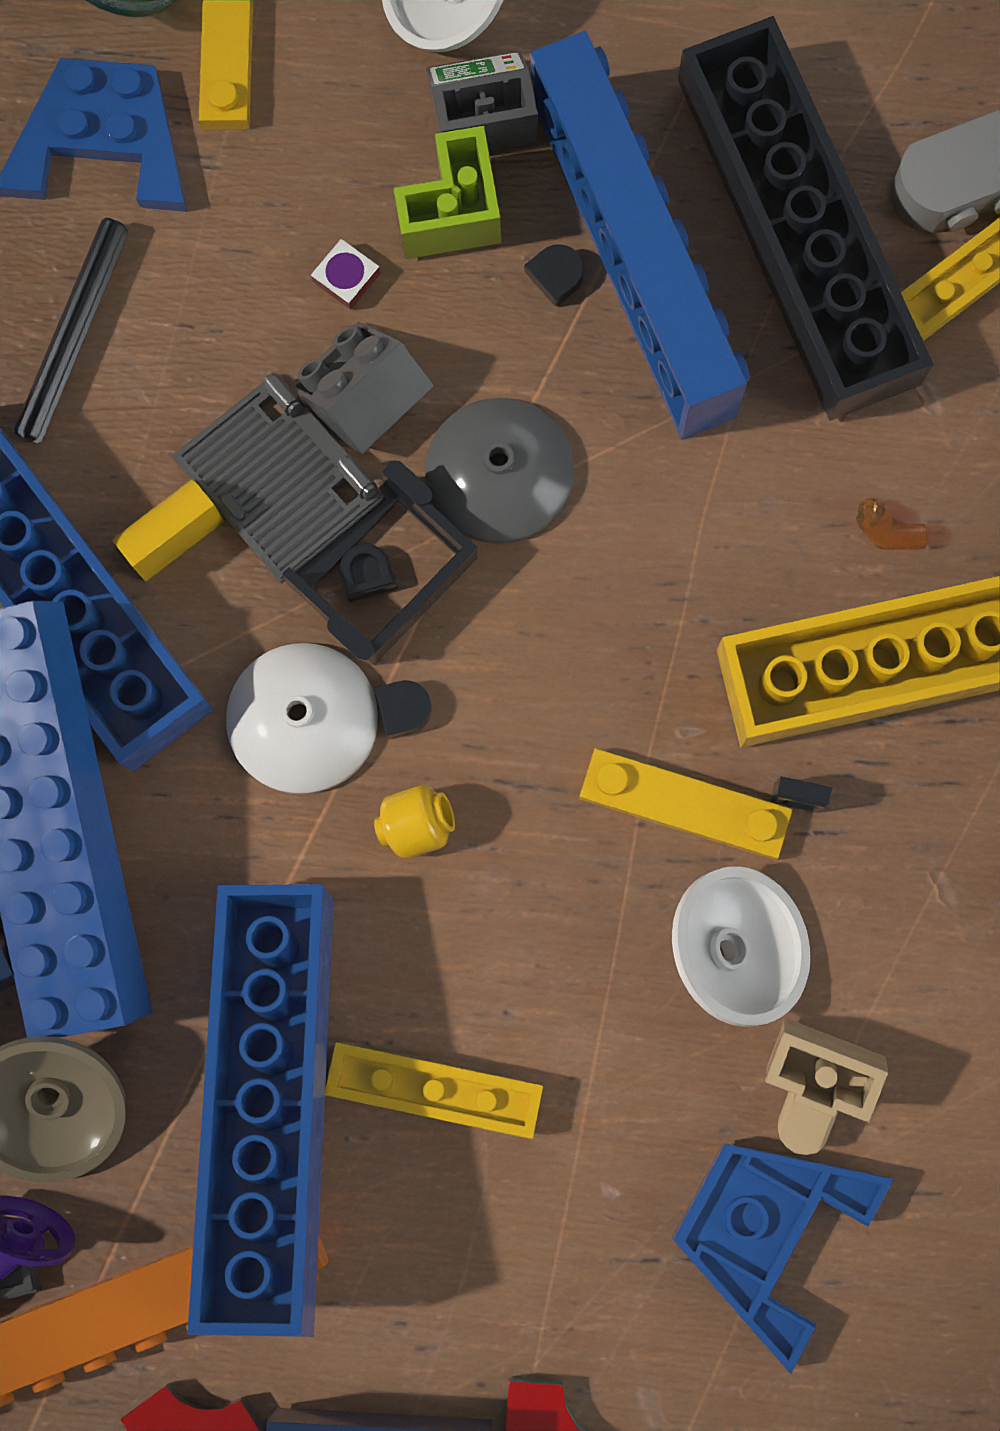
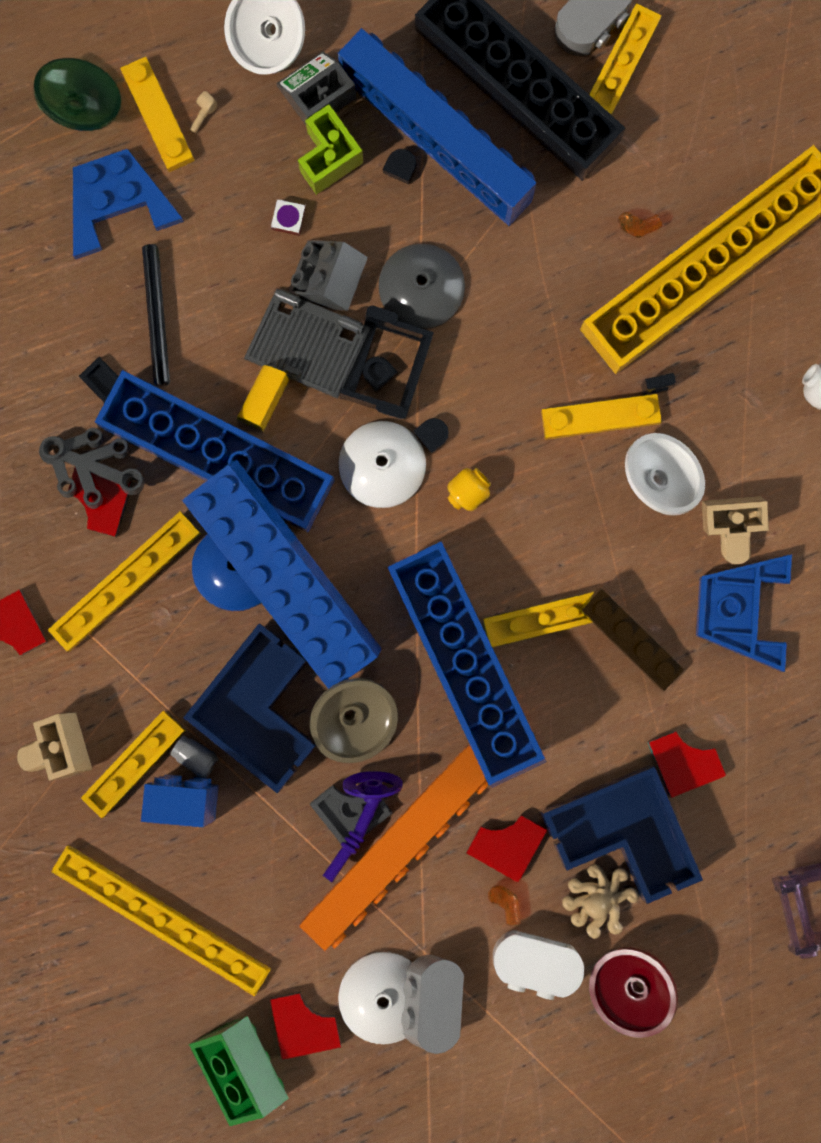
camera: 30 degrees left, 5 degrees up
(309, 58) = (208, 106): none -> tan hand
(560, 1193) = (631, 639): none -> dark brown plate

